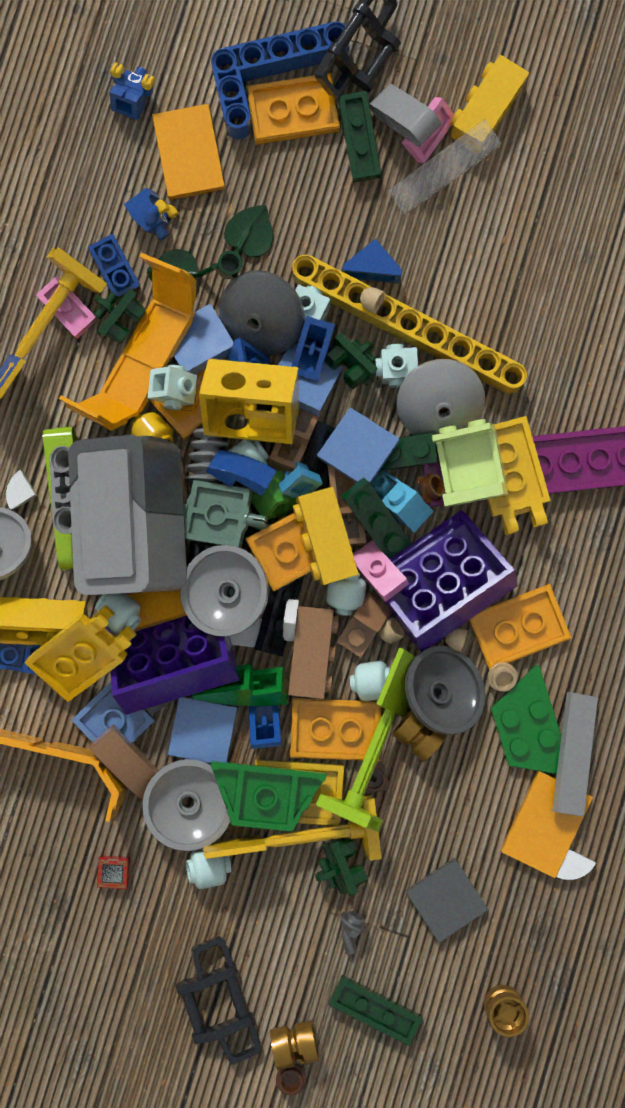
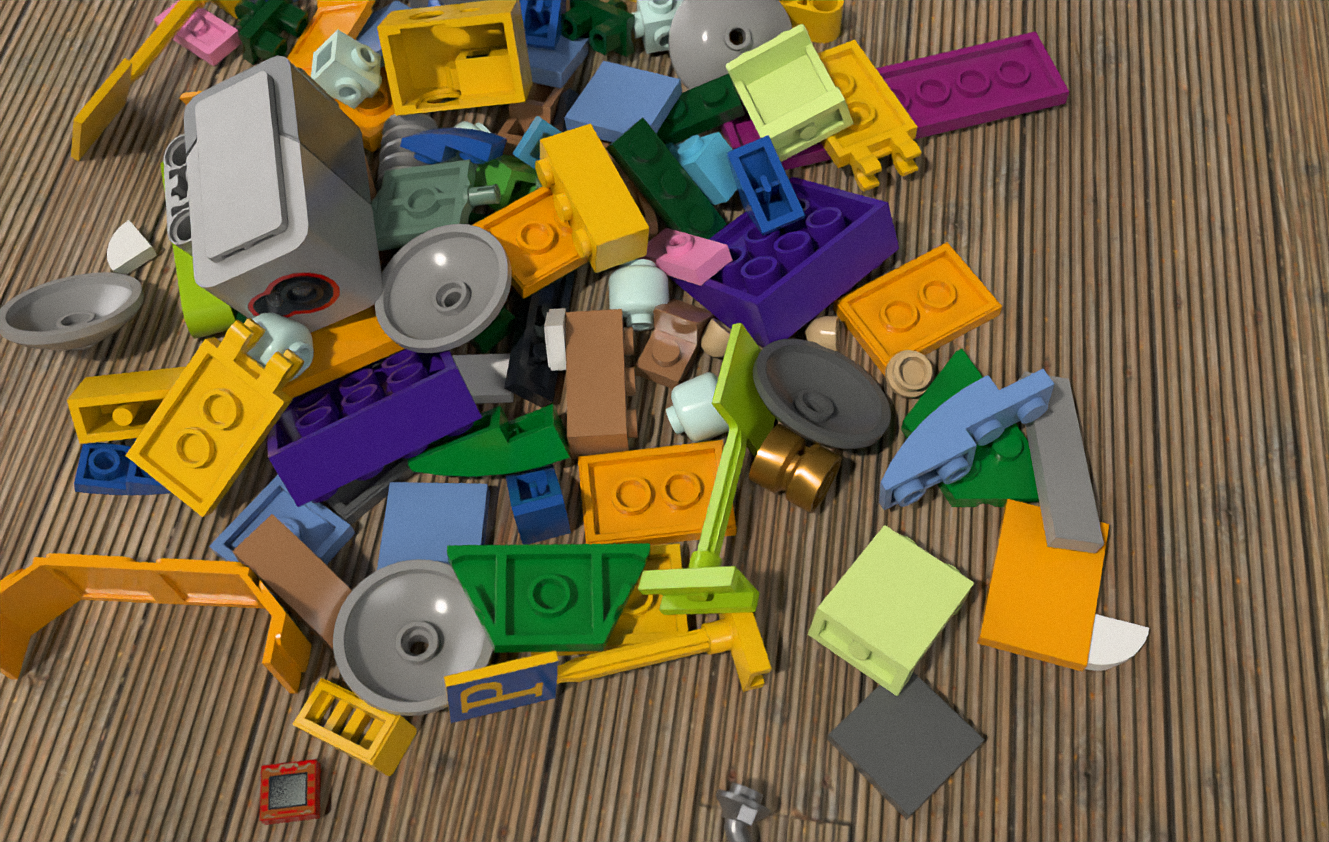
camera: 10 degrees left, 25 degrees down
(160, 864) = (382, 744): none -> yellow slope
(207, 872) = (462, 747): light aqua head -> none
(336, 870) = (696, 709): dark green hips -> none
(381, 782) = (740, 545): reddish brown plate -> none
(430, 488) = (737, 132): reddish brown plate -> none
(440, 537) = (764, 186): none -> blue slope
(457, 831) = (889, 608): none -> yellowish green panel
(506, 741) = (947, 439): none -> medium blue slope

